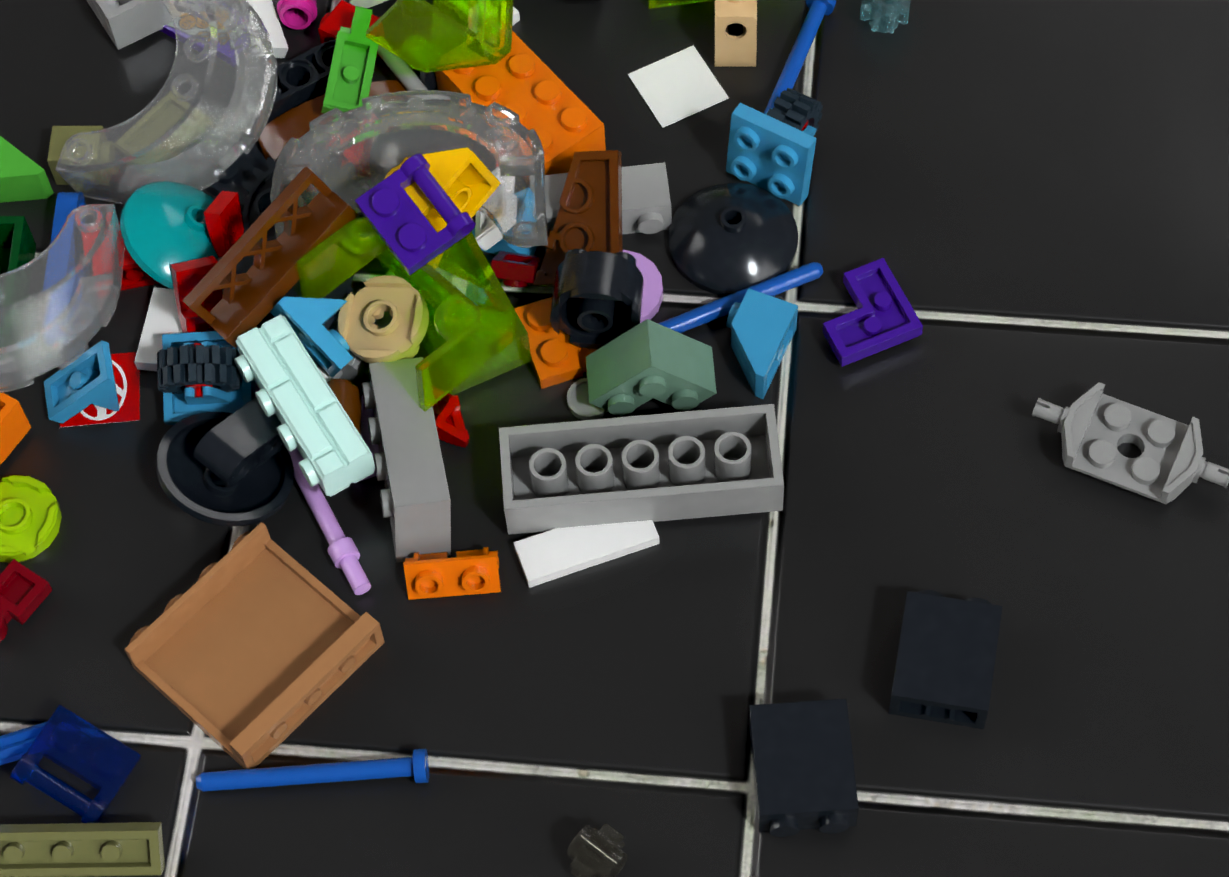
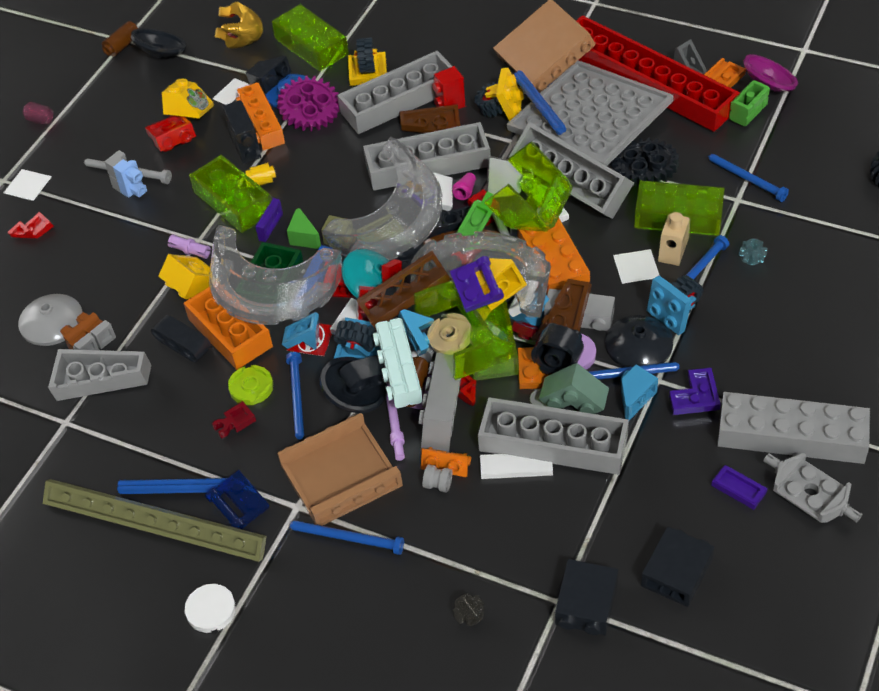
camera: 20 degrees right, 10 degrees down
(84, 444) = (294, 360): none -> blue bar
(449, 612) = (437, 478): none -> light grey wheel
(1002, 475) = (739, 487): none -> dark purple tile
(1065, 336) = (794, 427): none -> light grey brick

